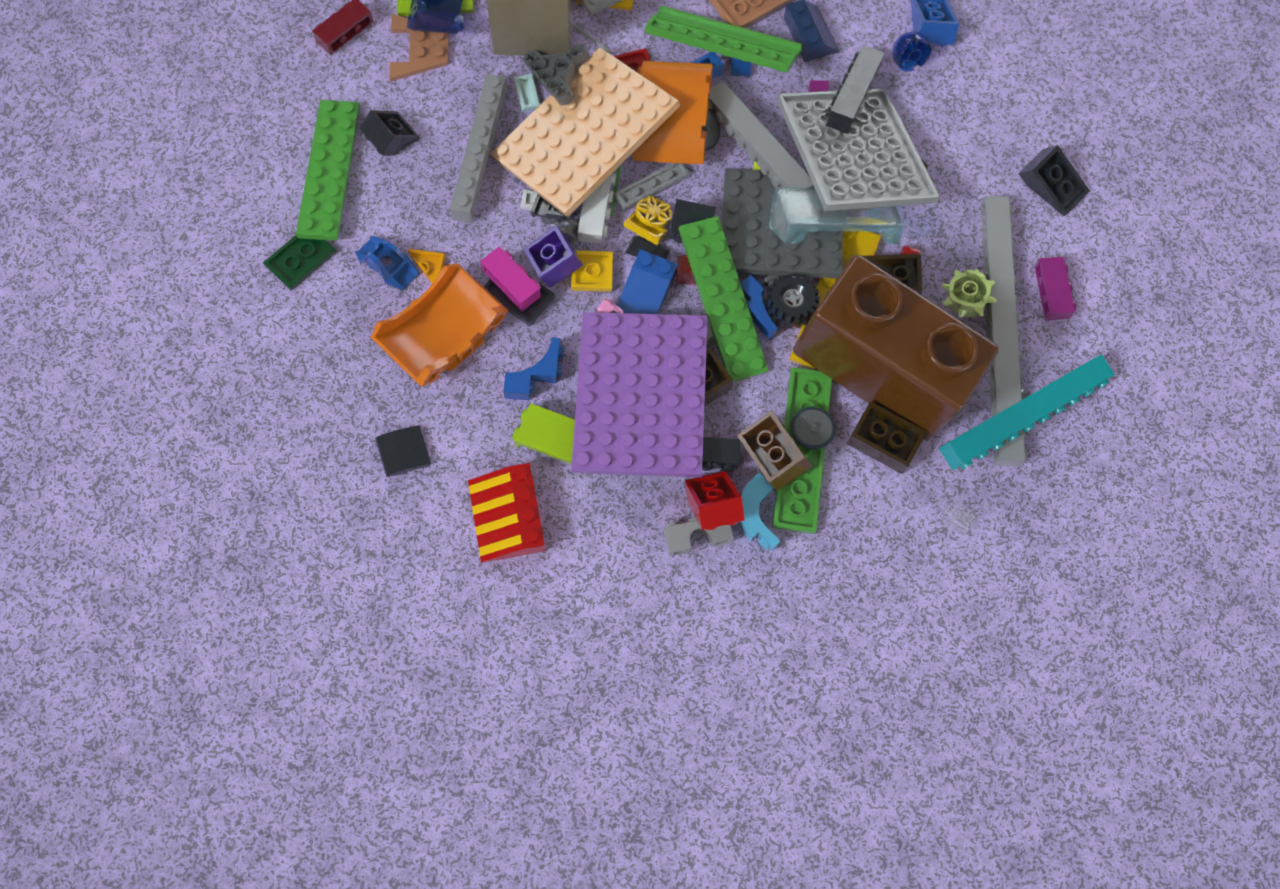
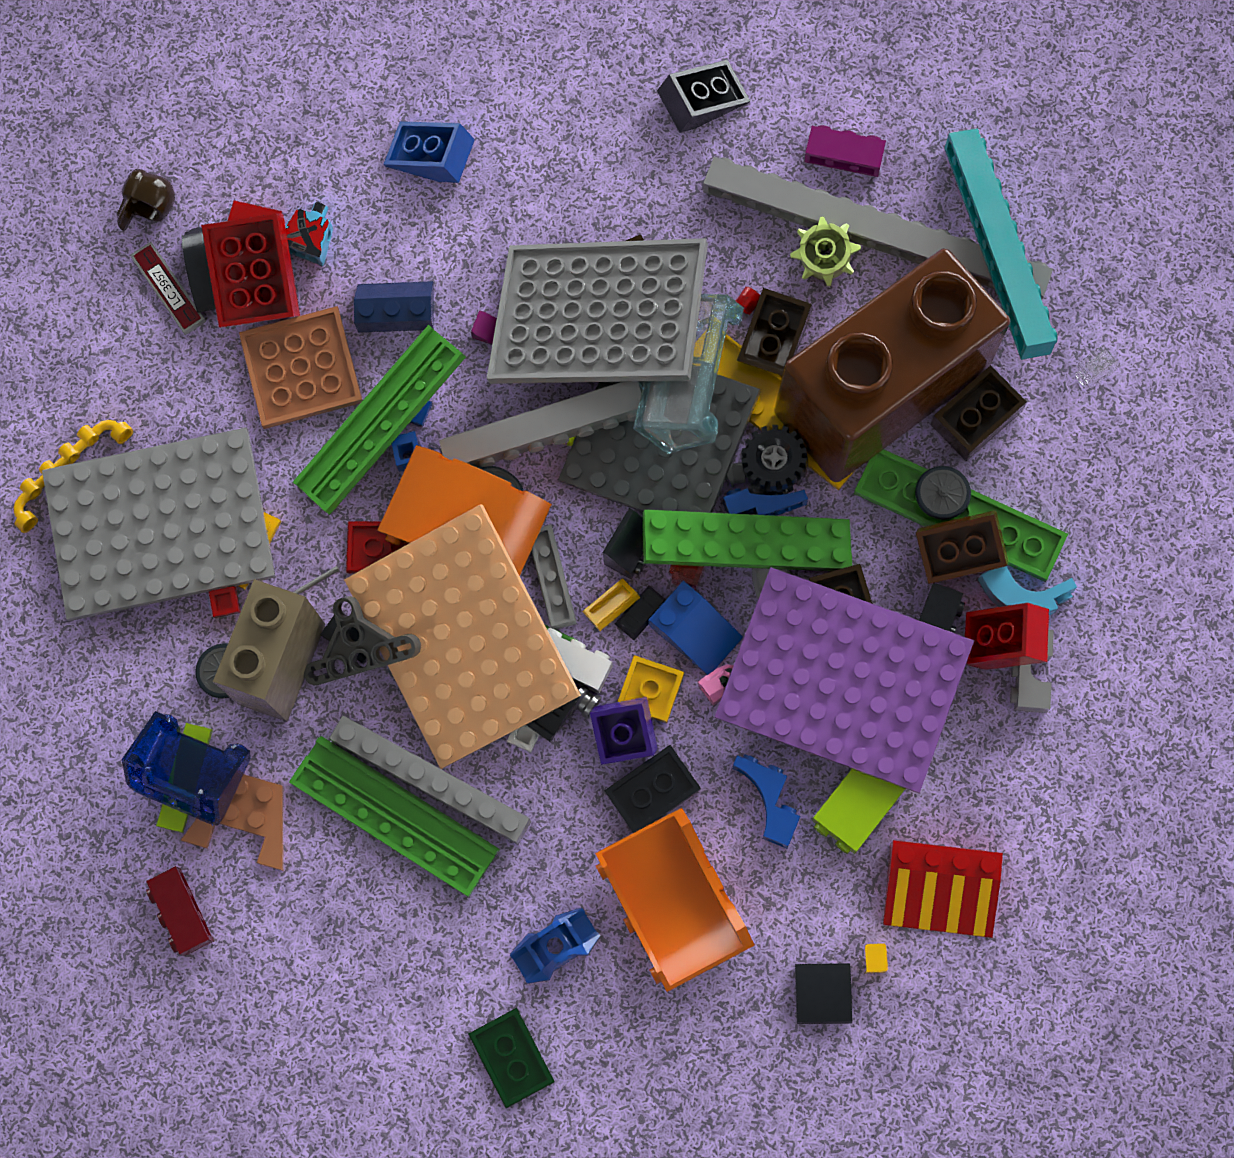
camera: 60 degrees left, 5 degrees up
(328, 170) = (395, 986): bright green plate -> none
(388, 132) = (366, 891): black slope -> none
(428, 262) = (575, 890): light orange tile -> none
(438, 479) = (876, 958): none -> yellow slope
(446, 137) = (394, 816): none -> bright green plate
(511, 278) = (638, 791): dark pink brick -> none
(527, 92) = (362, 694): light aqua tile -> none
(653, 212) = (593, 587): yellow wheel -> none
(853, 89) = (510, 283): brick -> none
(911, 50) = (468, 195): clear blue cylinder -> none

